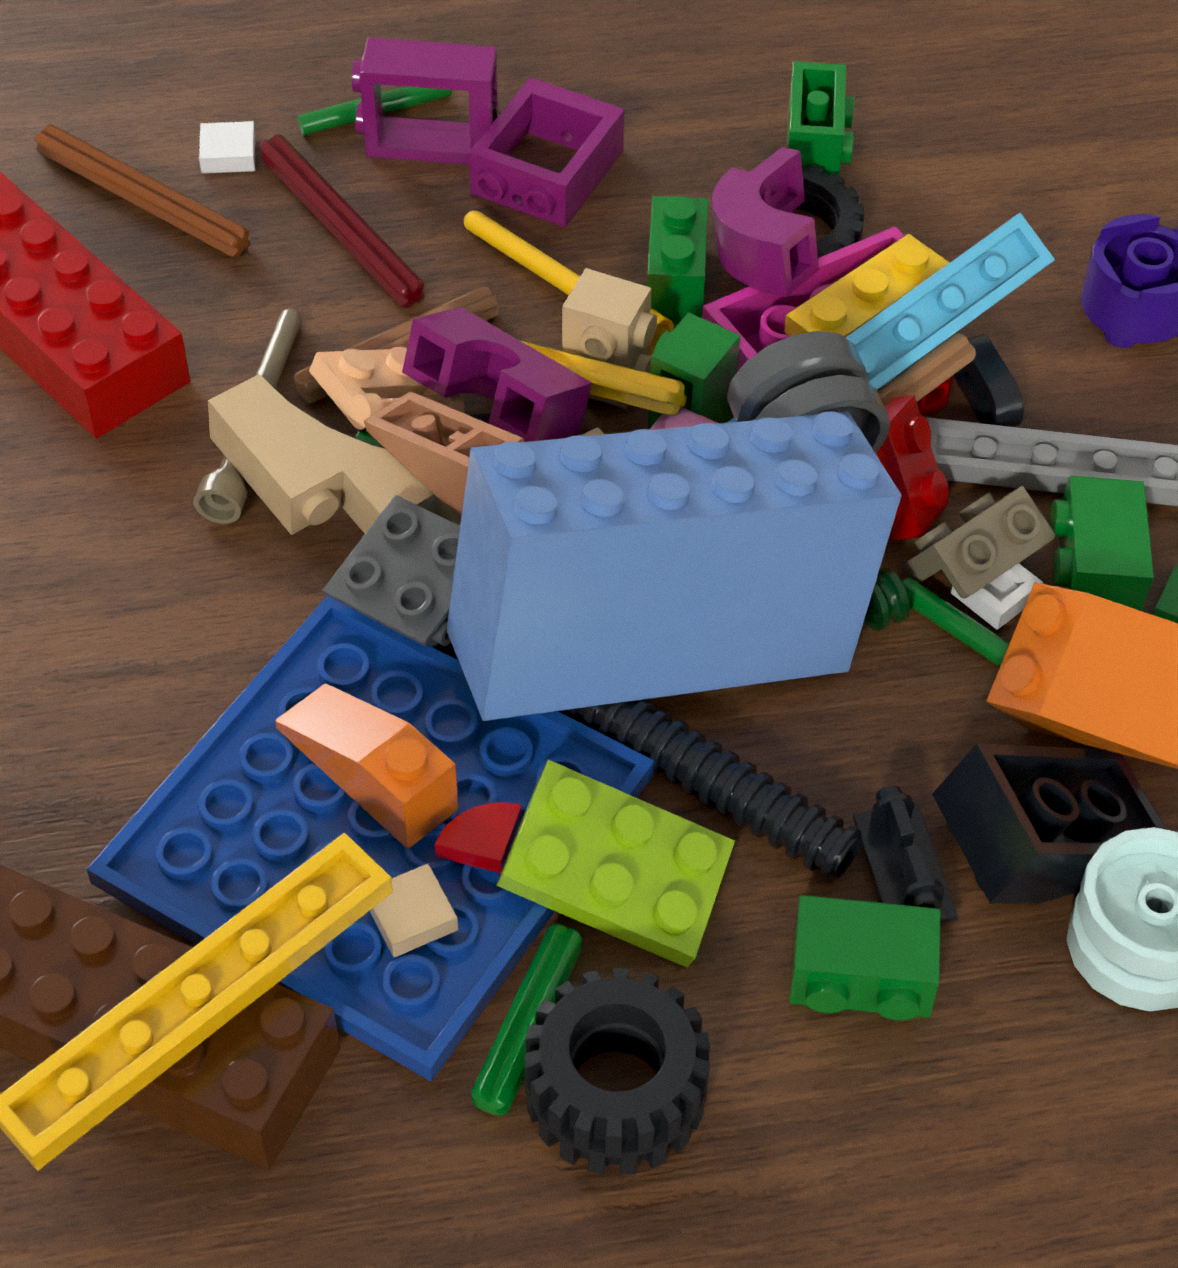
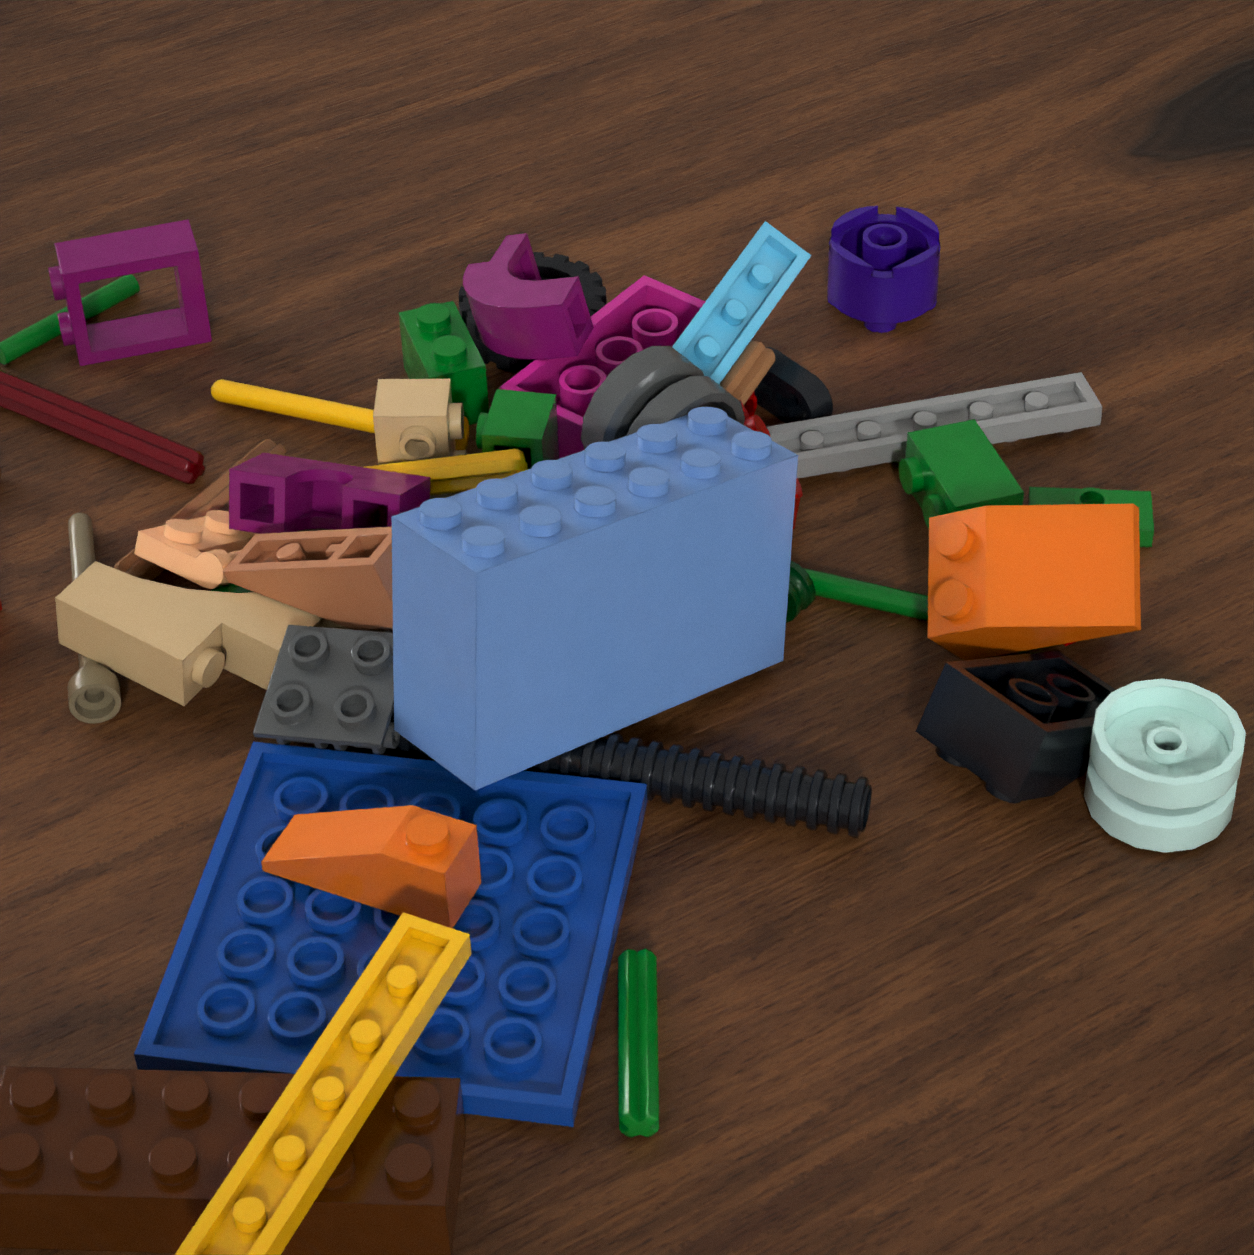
camera: 20 degrees left, 10 degrees down
(414, 912) = (491, 979): tan tile -> none
(481, 836) = (518, 894): red tile -> none
(557, 116) = (267, 279): magenta window -> none
(616, 864) = (658, 878): lime plate -> none
(624, 1018) = (751, 1094): black tyre -> none
(819, 114) = (516, 203): green brick -> none
(865, 957) = (925, 882): green brick -> none
(866, 289) = (654, 322): yellow plate -> none
(903, 854) = (918, 797): black hinge -> none
(984, 546) = (855, 513): dark tan bracket -> none
(1002, 597) = (882, 551): white plate -> none

